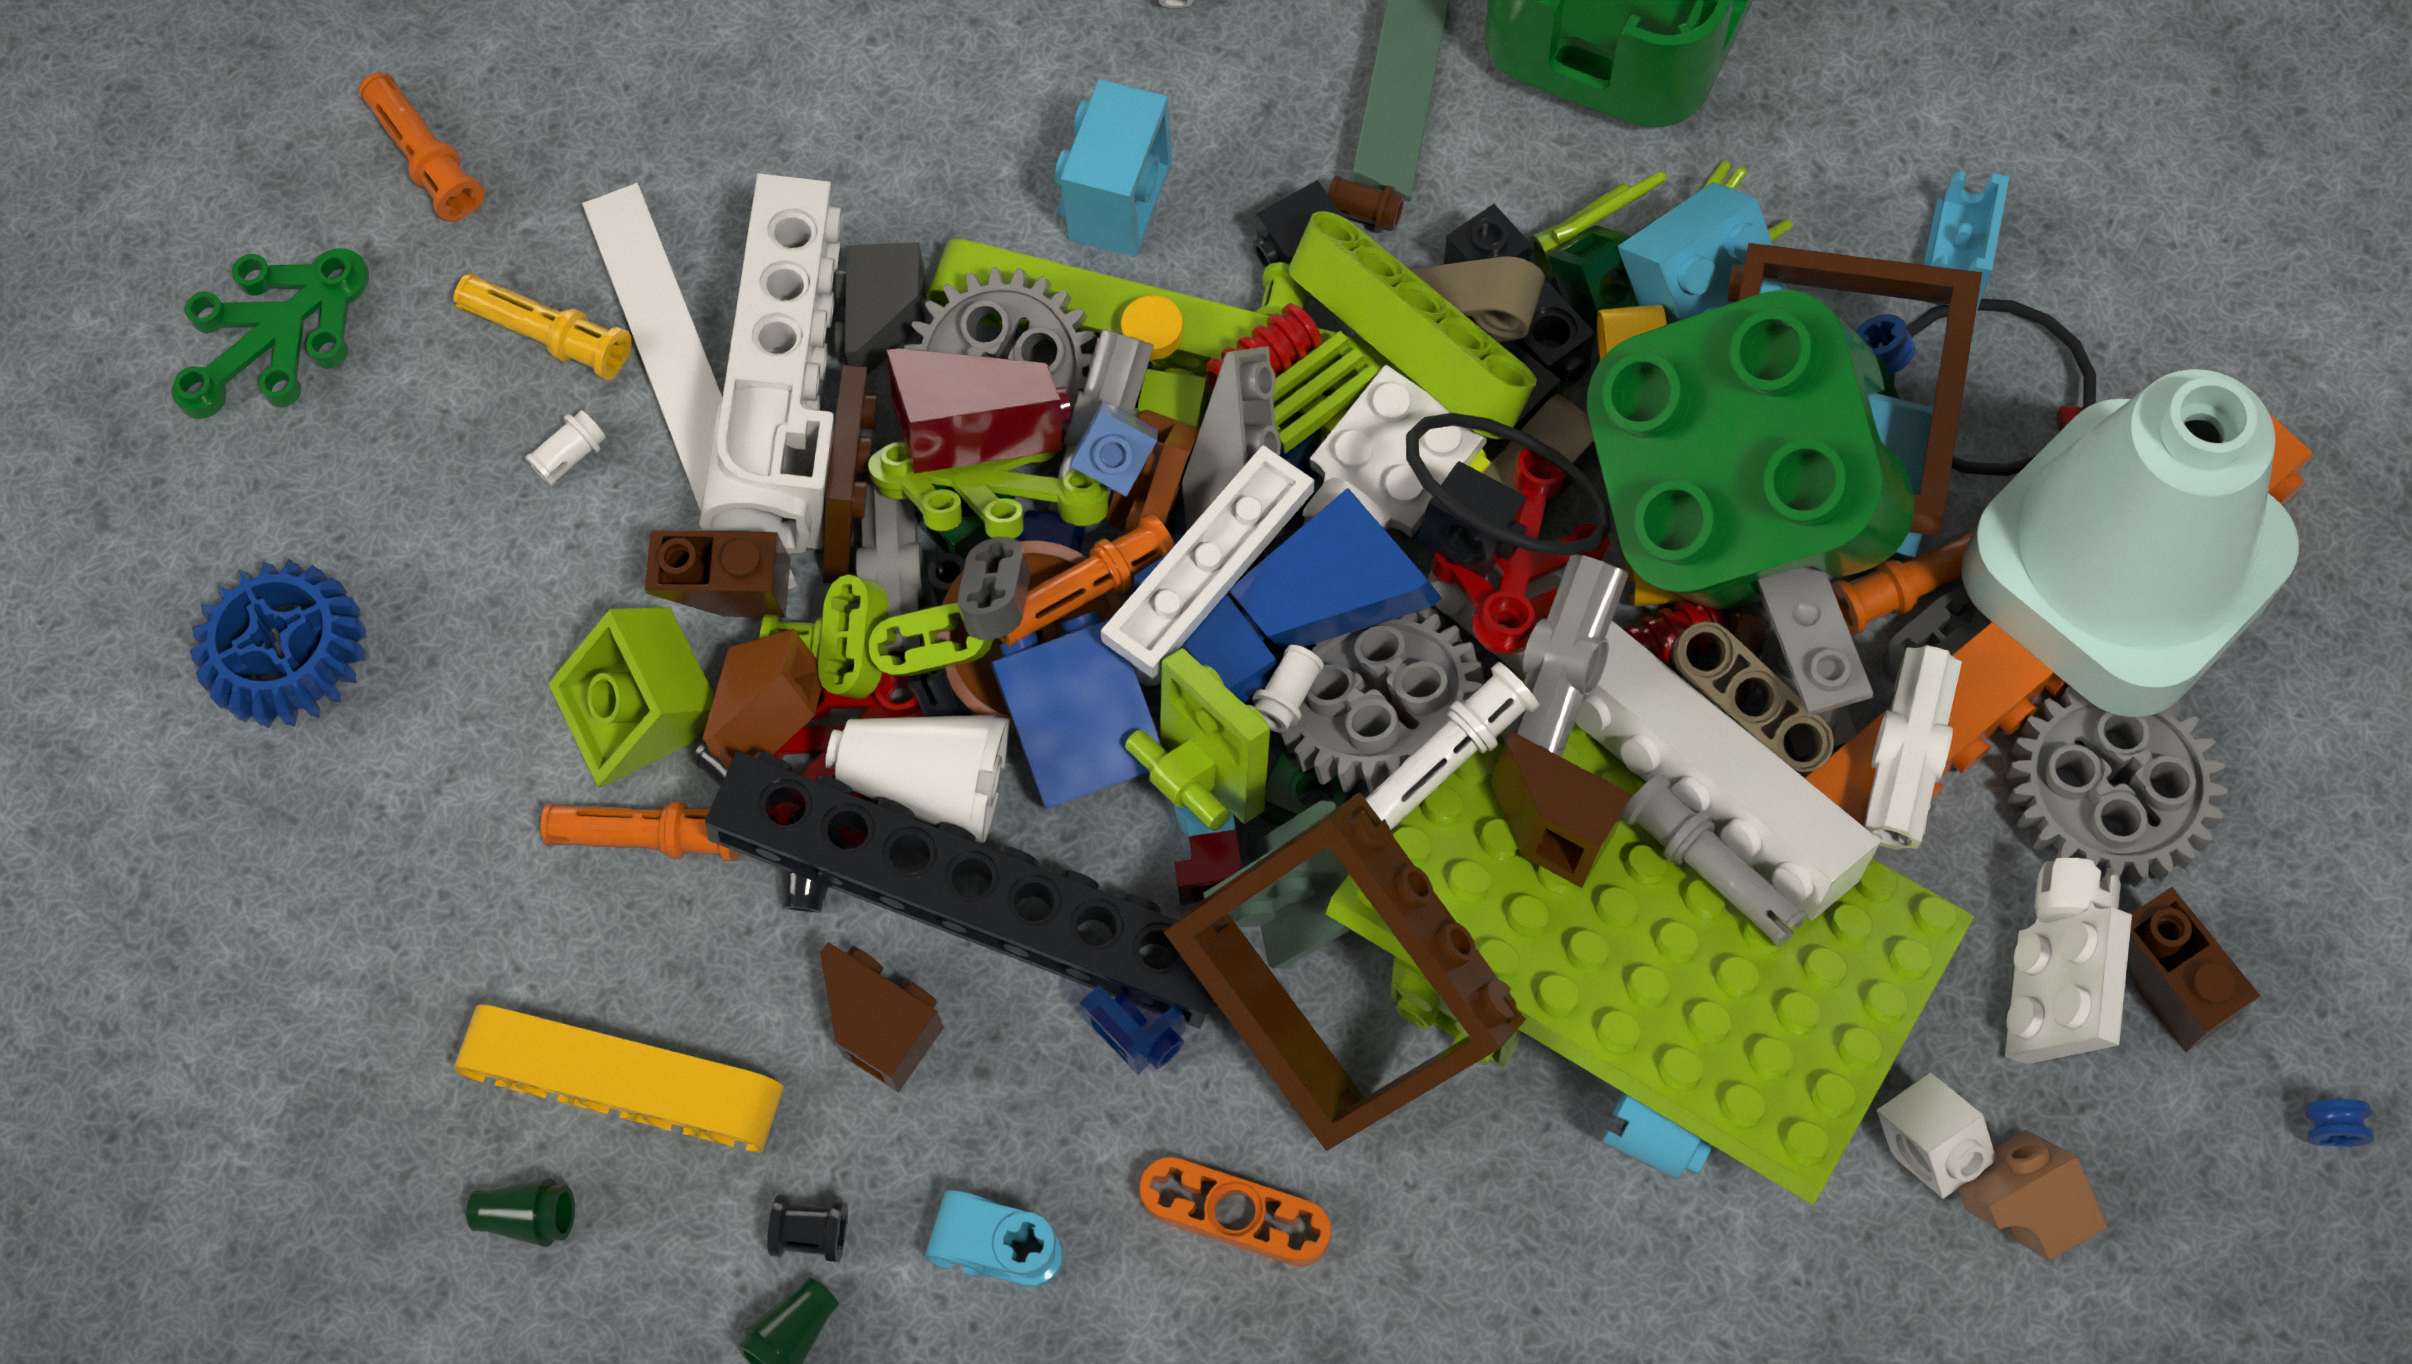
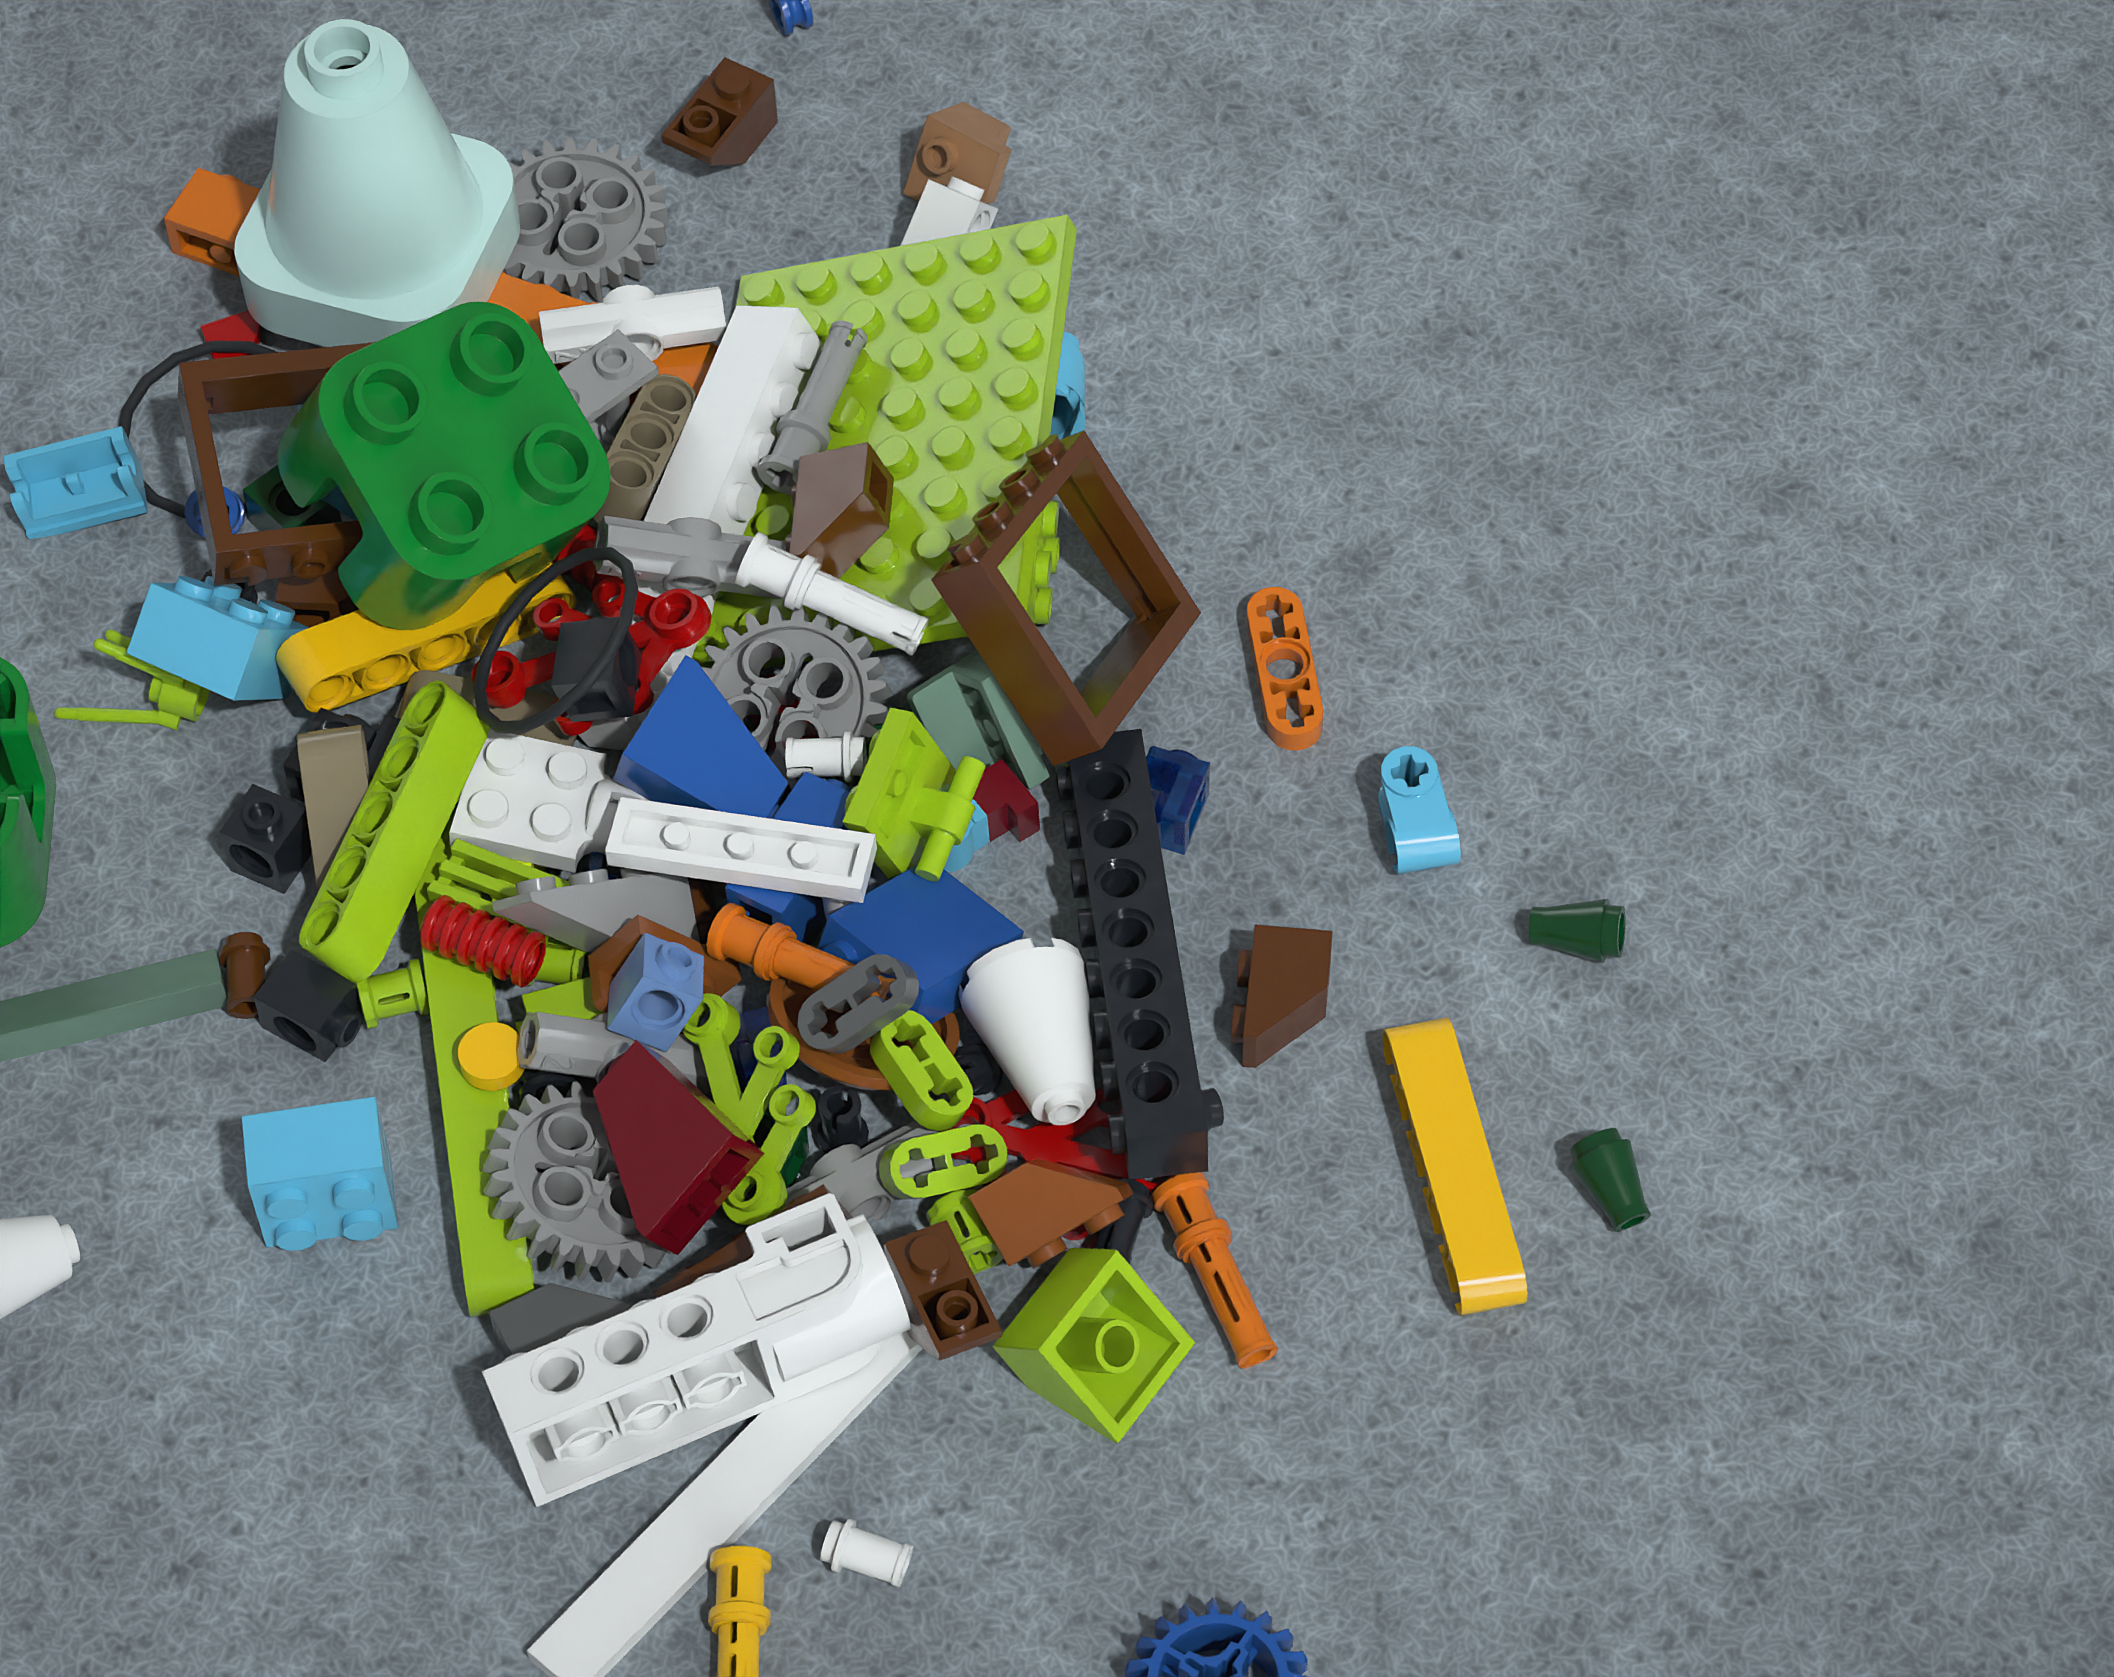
camera: 120 degrees left, 10 degrees down
(807, 1228) = (1489, 954): black bush -> none
(1559, 234) = (217, 785): lime plant -> none
(1584, 264) = (251, 736): dark green brick -> none
(2069, 965) = (763, 183): white plate -> none

